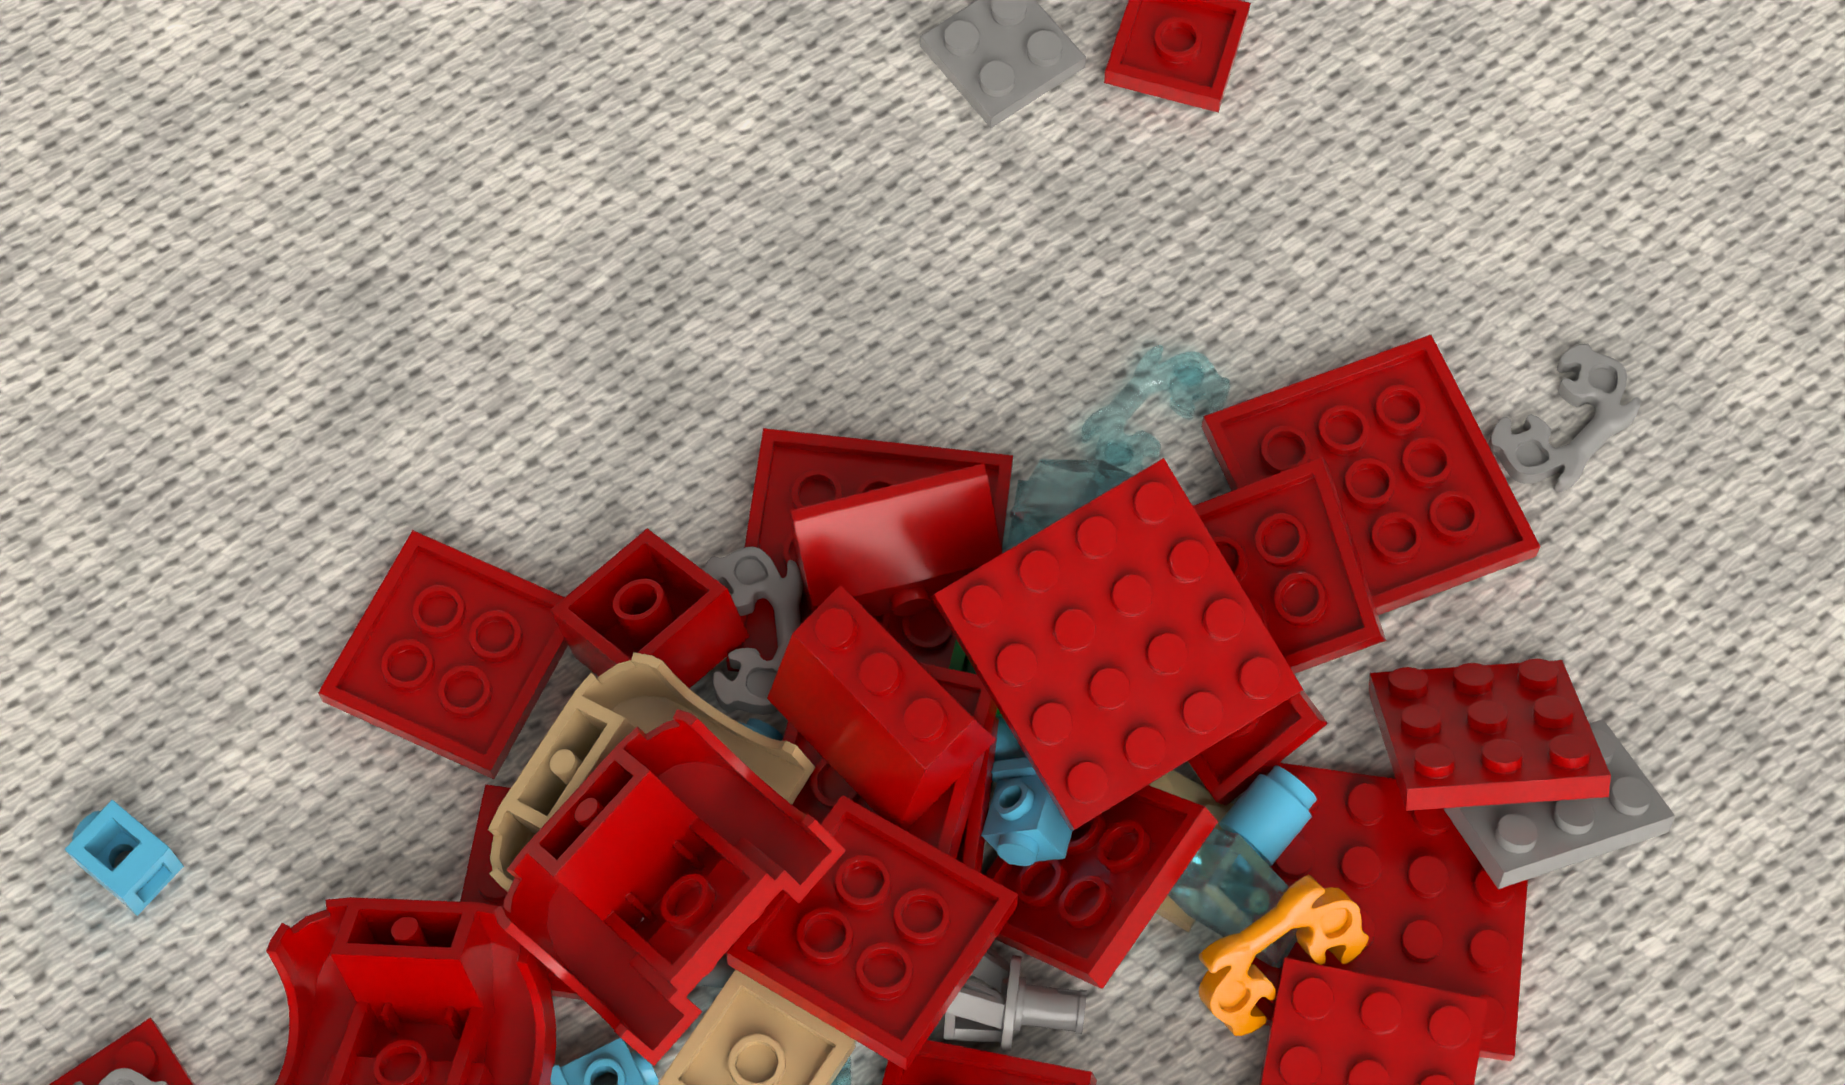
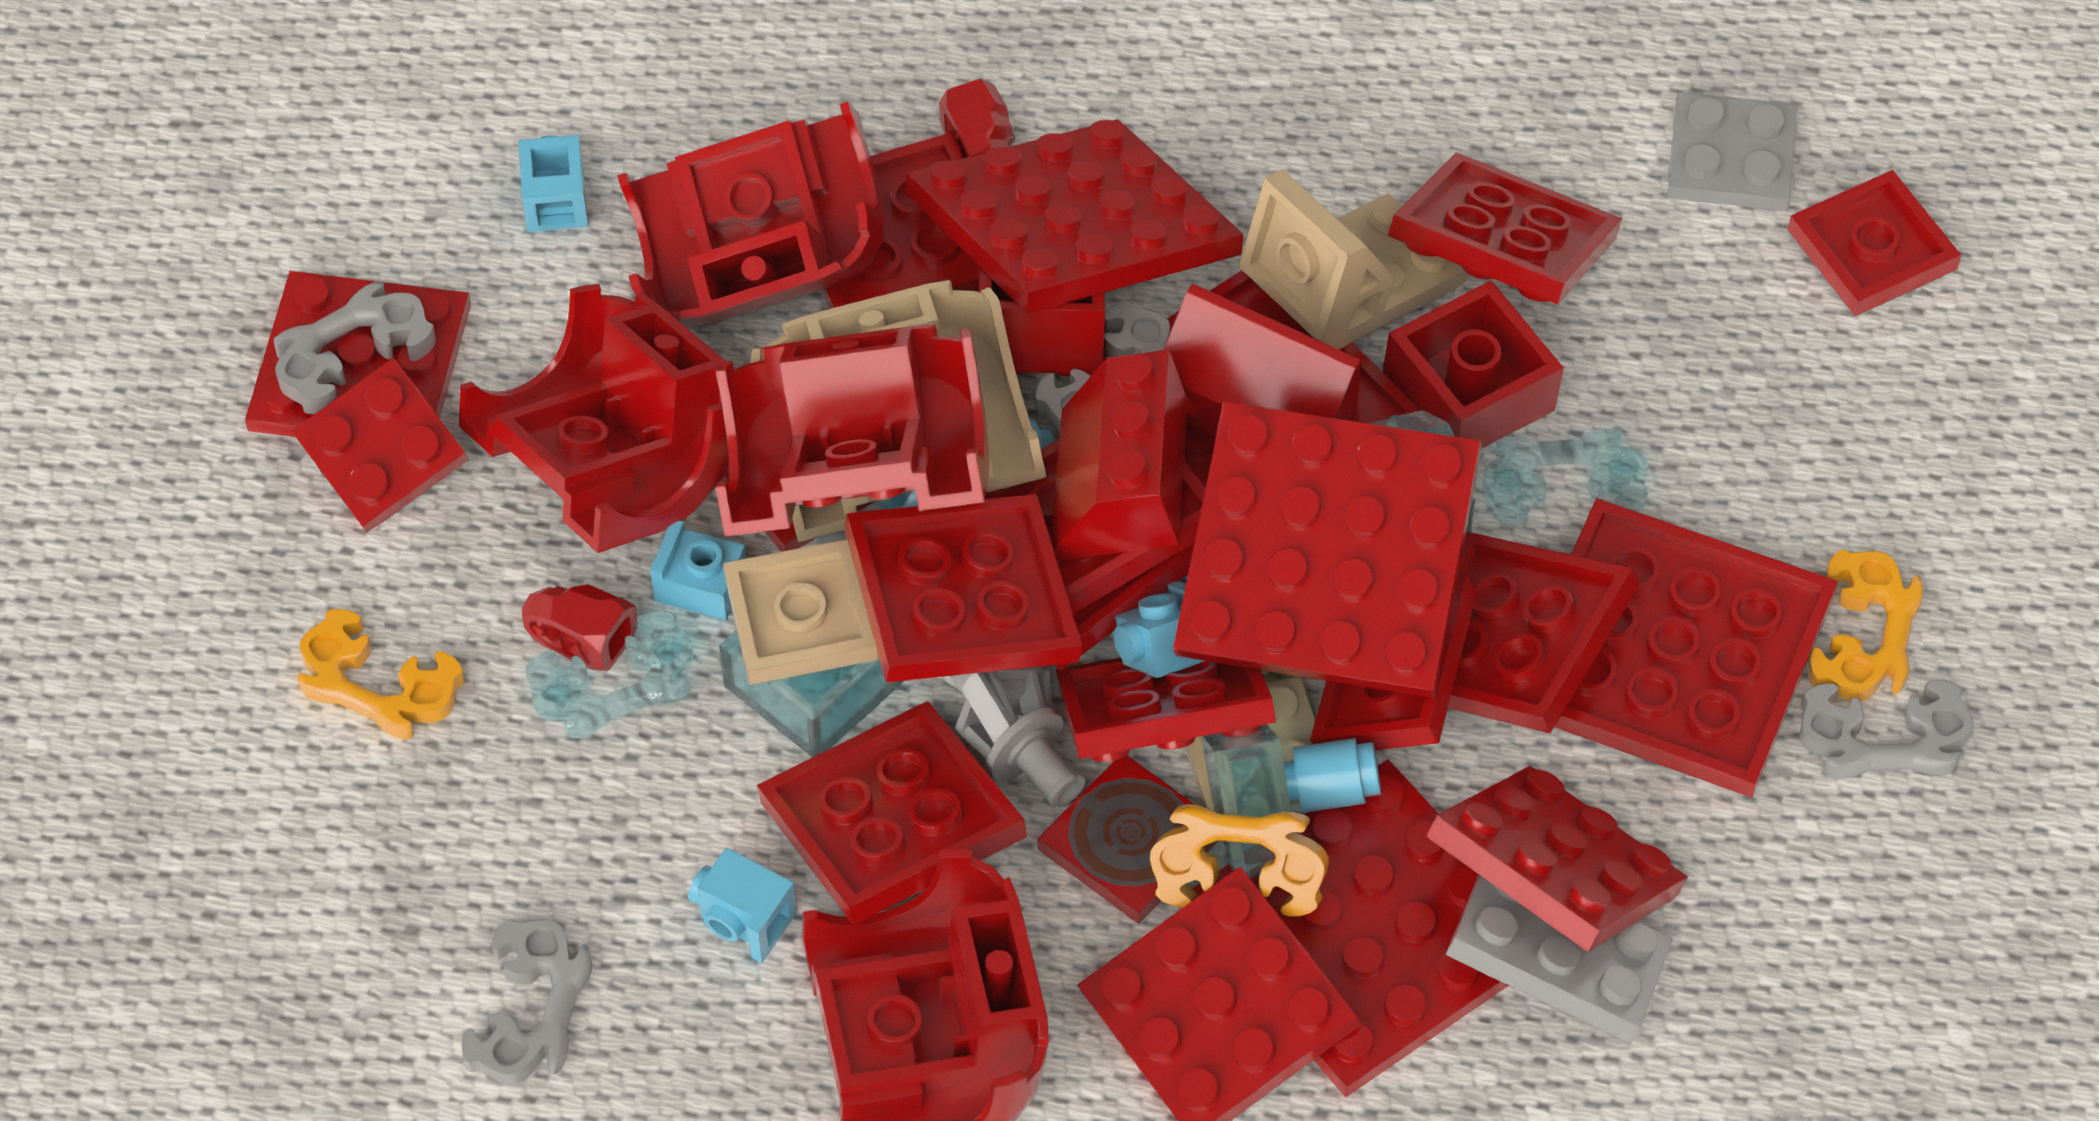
camera: 45 degrees right, 10 degrees down
(350, 752) = (757, 219): none -> red piece
(430, 505) = (976, 117): none -> red rock
(597, 524) = (1073, 215): none -> red plate
(843, 382) = (1339, 272): none -> tan bracket
(927, 254) = (1505, 228): none -> red plate
(1018, 388) = (1475, 366): none -> red brick
(1153, 1009) = (1111, 832): none -> tile
(1439, 312) = (1870, 579): none -> light orange helmet

